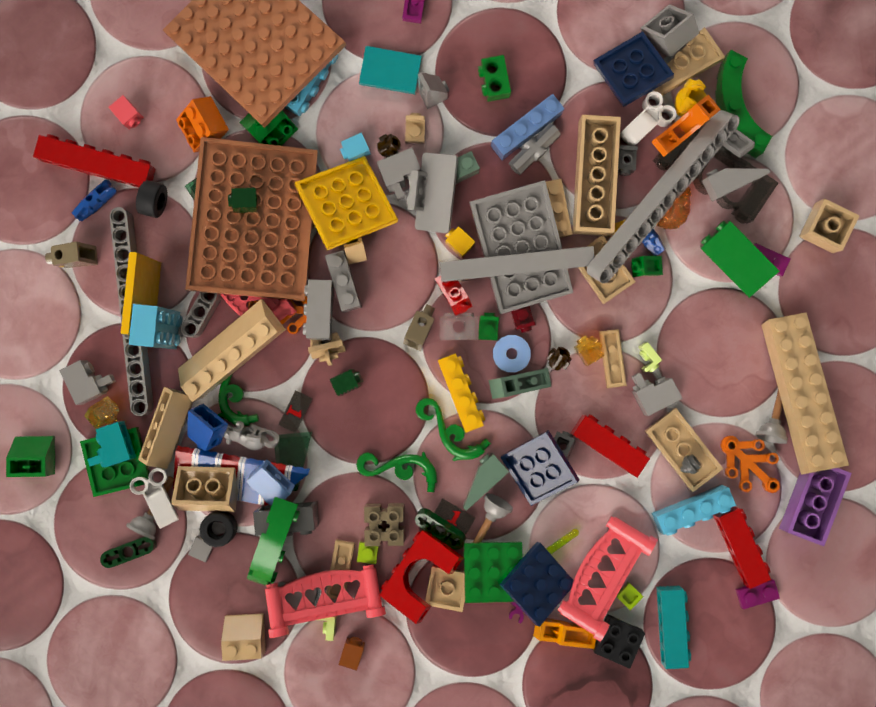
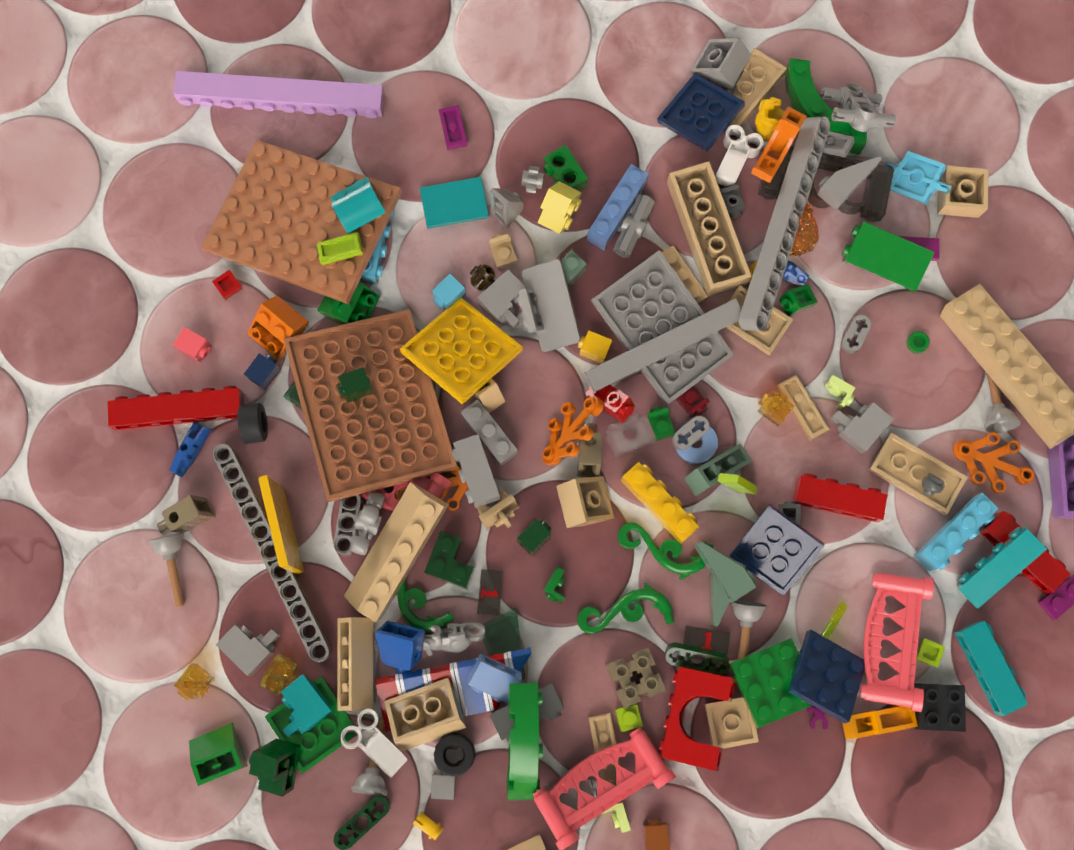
camera: 20 degrees left, 10 degrees down
(33, 392) = (193, 682): none -> clear yellow brick
(48, 275) = (168, 547): none -> piece
(72, 484) = (275, 766): none -> dark green brick
(155, 327) = (308, 553): medium azure brick -> none
(173, 71) = (227, 284): none -> red plate
(176, 157) = (262, 371): none -> dark blue brick
(178, 574) = (428, 826): none -> yellow pin
(214, 319) = (367, 523): none -> light grey gear
(265, 375) = (443, 562): none -> dark green brick
(273, 76) = (340, 248): none -> lime tile
(301, 43) = (357, 205): none -> teal brick
(350, 424) = (555, 581): none -> green bracket
(390, 317) = (554, 452): none -> orange plant
(400, 368) = (585, 501): none -> tan slope
(464, 75) = (532, 179): none -> light grey gear
(475, 108) = (559, 206): none -> light yellow brick
(491, 476) = (729, 575): none -> sand green slope
(507, 340) = (694, 437): none -> light grey beam
(527, 400) = (737, 483): none -> lime tile
(559, 358) = (748, 427): dark brown gear -> none
(686, 316) = (860, 336): none -> light grey beam
(716, 552) = (1001, 566): none -> teal brick
(732, 340) = (918, 342): none -> green tile
(770, 116) = (857, 107): none -> light grey piece
(795, 199) = (918, 177): none -> medium azure plate

